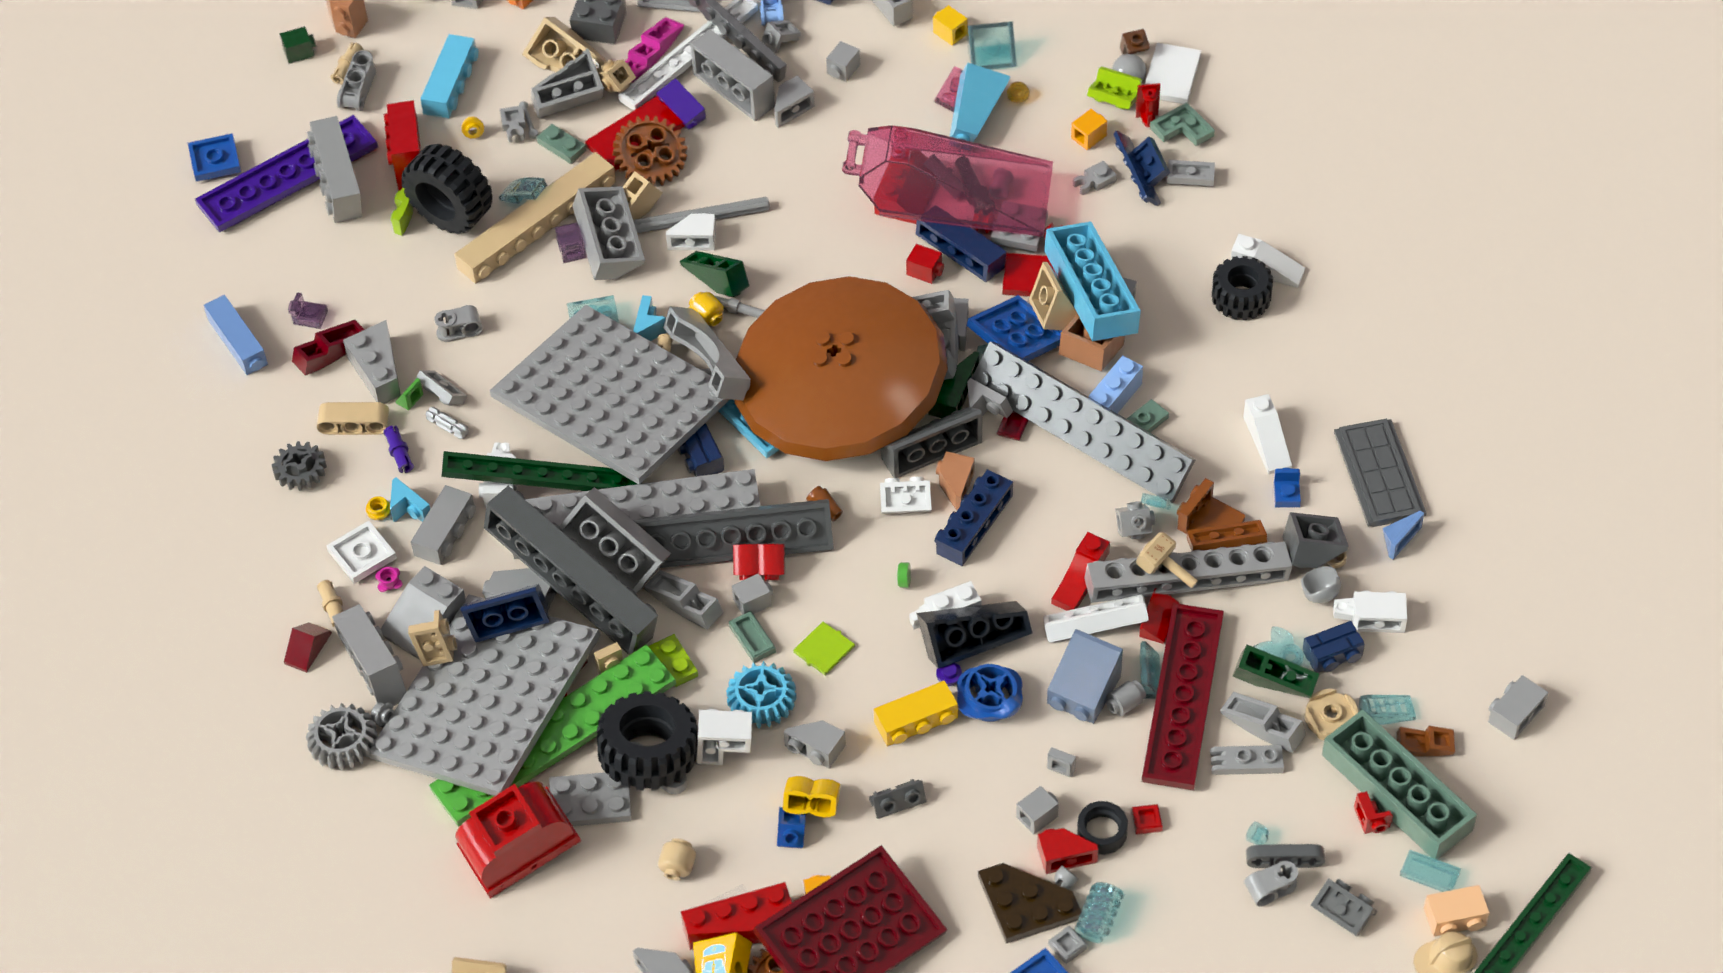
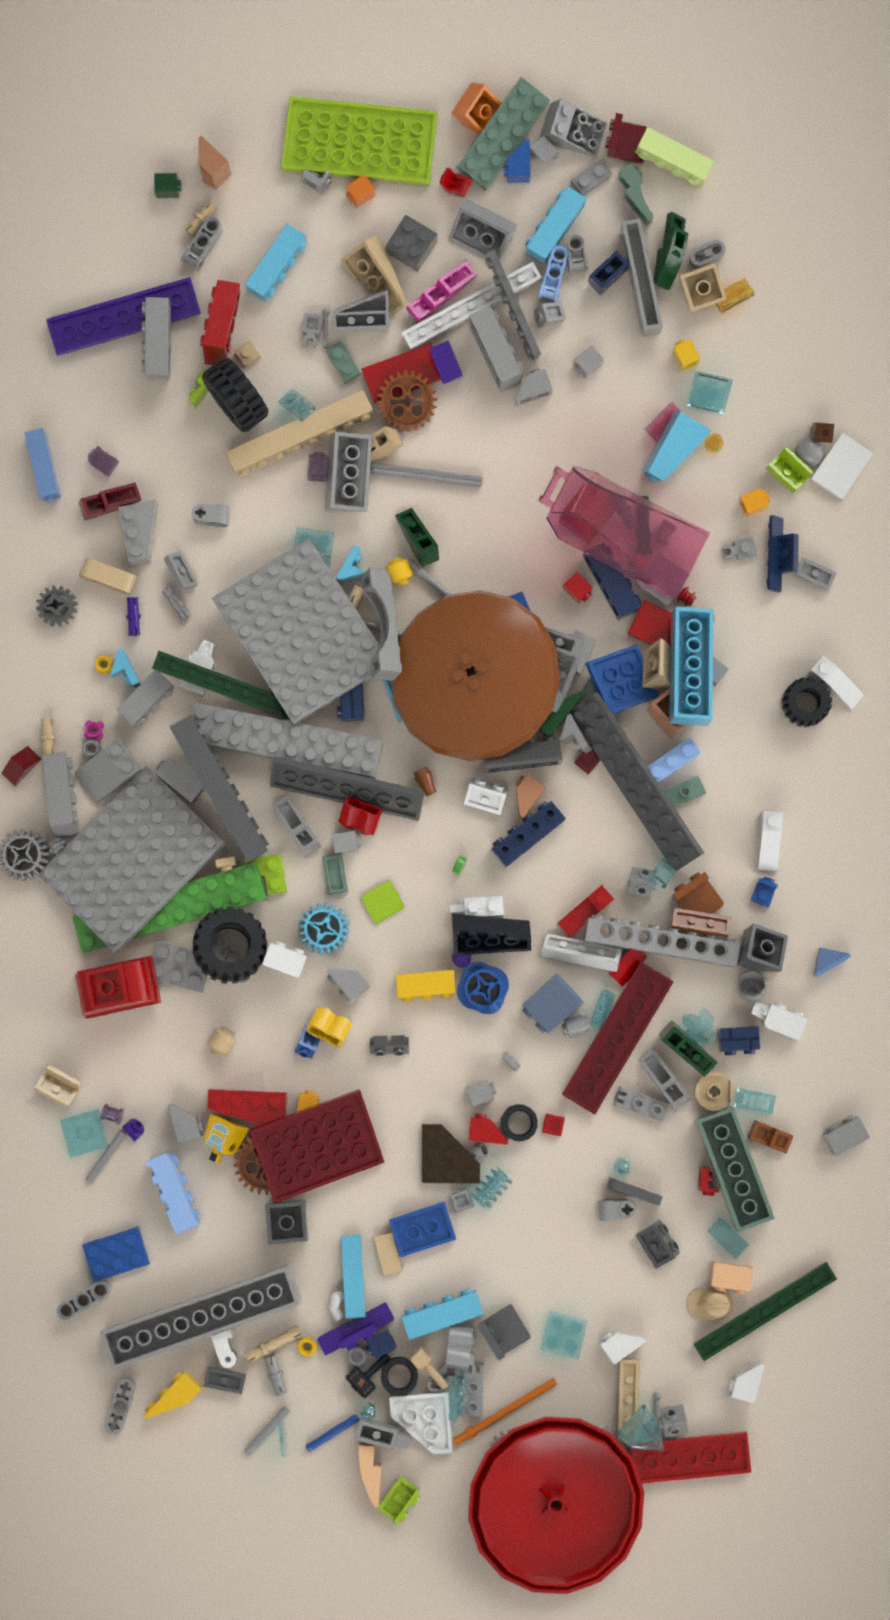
camera: 20 degrees right, 30 degrees up
(214, 157) = (72, 279): blue plate -> none
(361, 552) = (80, 699): white plate -> none
(389, 594) = (85, 748): none -> light grey plate
(411, 395) = (156, 568): bright green slope -> none
(433, 640) = (108, 812): tan bracket -> none
(472, 122) = (278, 323): yellow plate -> none
(506, 613) = (162, 803): dark blue slope -> none
(614, 540) = (256, 774): light grey brick -> none
(616, 75) = (403, 318): tan brick -> none
(693, 233) = (415, 493): white slope -> none
(1147, 102) = (807, 499): red hinge -> none
(1157, 554) = (640, 931): tan piece -> none
(1182, 120) = (831, 520): sand green plate -> none
(1379, 471) = (838, 900): dark grey piece -> none

